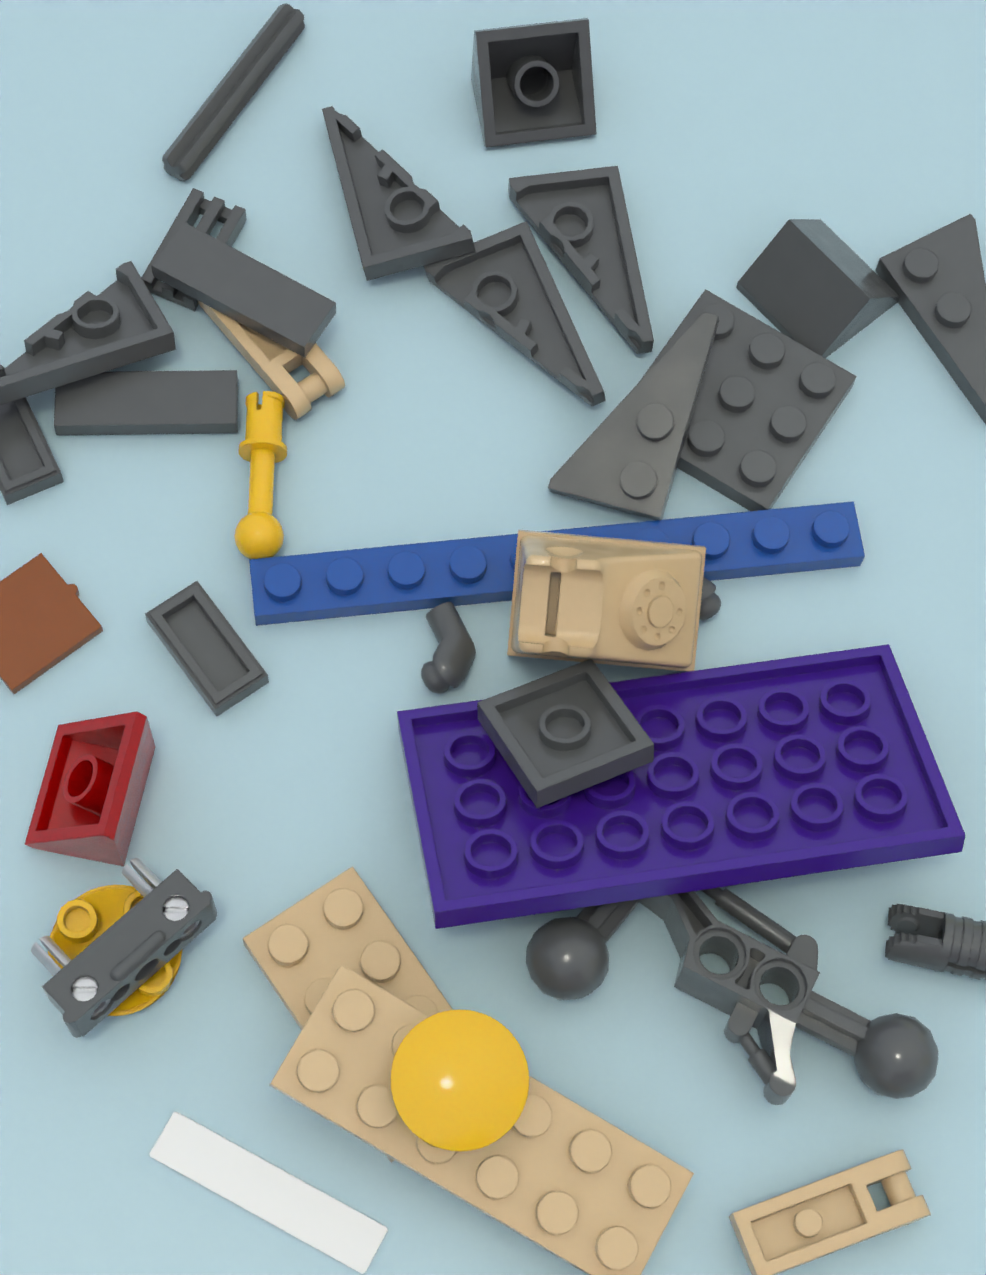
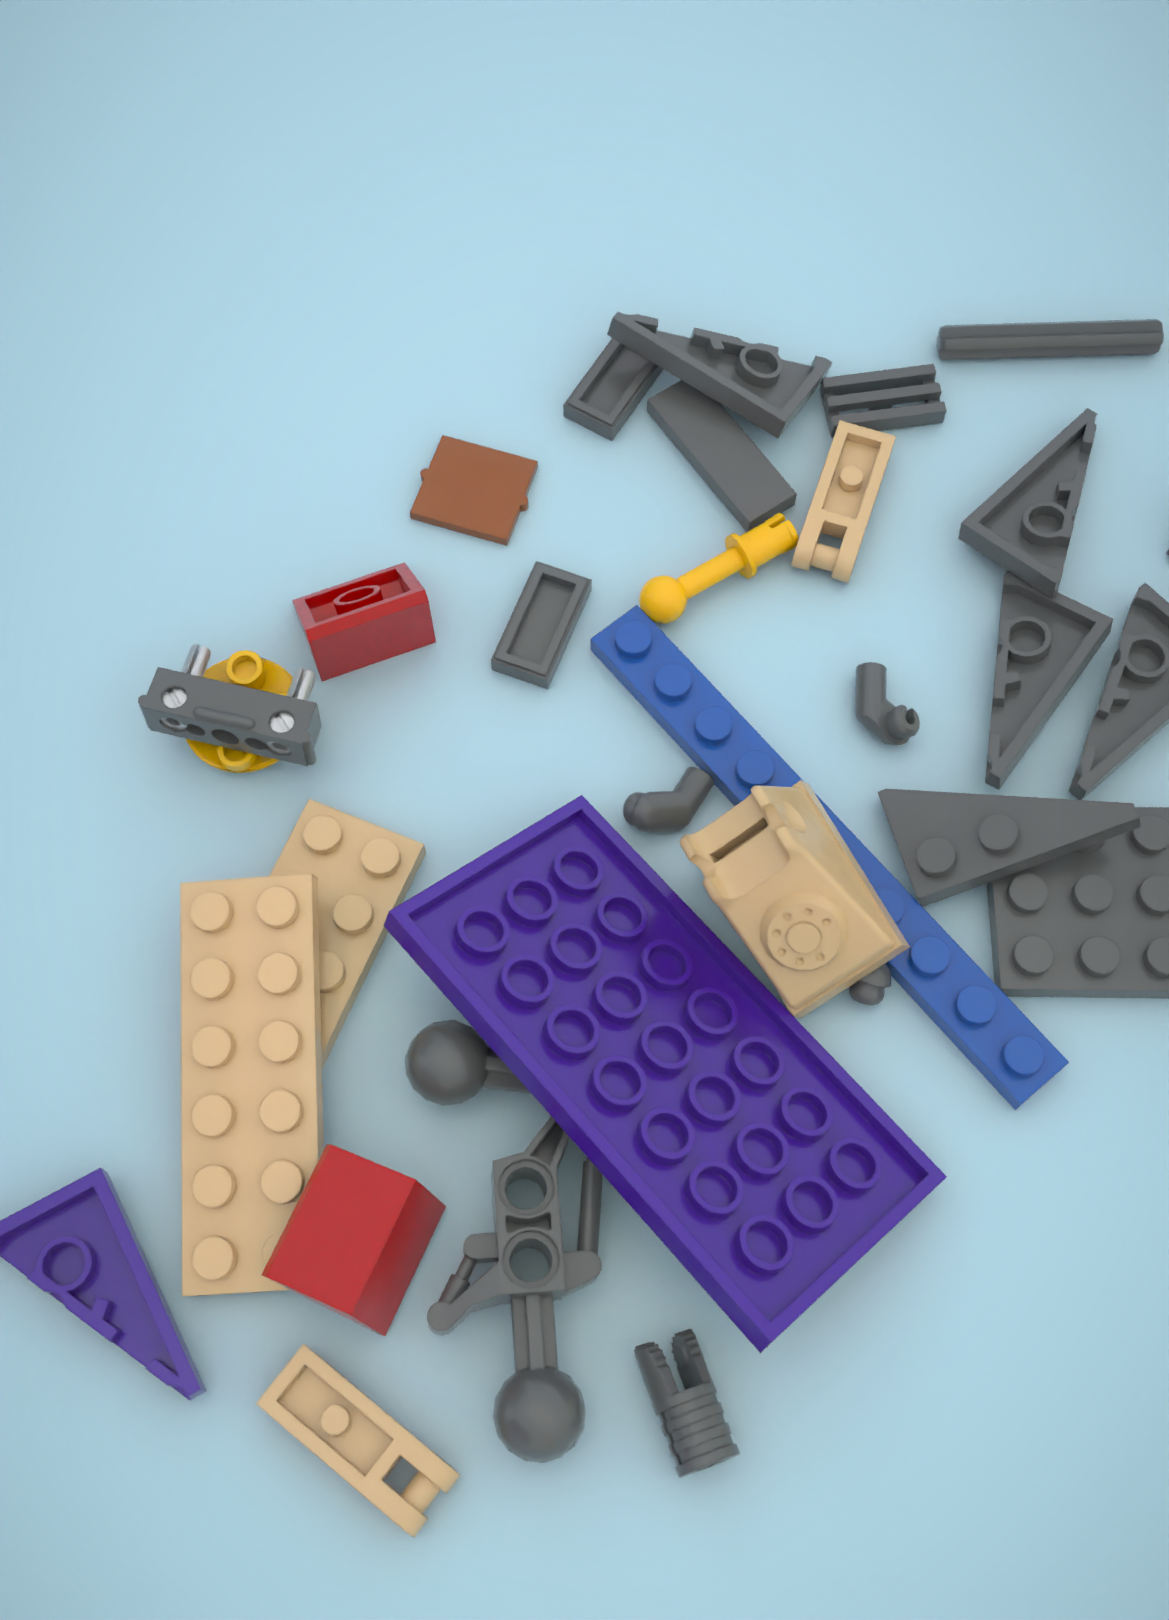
camera: 65 degrees right, 0 degrees up
(244, 289) = (866, 449): dark grey tile -> none
(269, 1192) = (118, 954): white sticker -> none
(459, 1080) = (265, 1027): yellow dish -> none
(476, 443) = (887, 722): none -> dark grey arm
(565, 732) = (638, 930): dark grey plate -> none
(670, 1120) = (355, 1238): none -> red slope

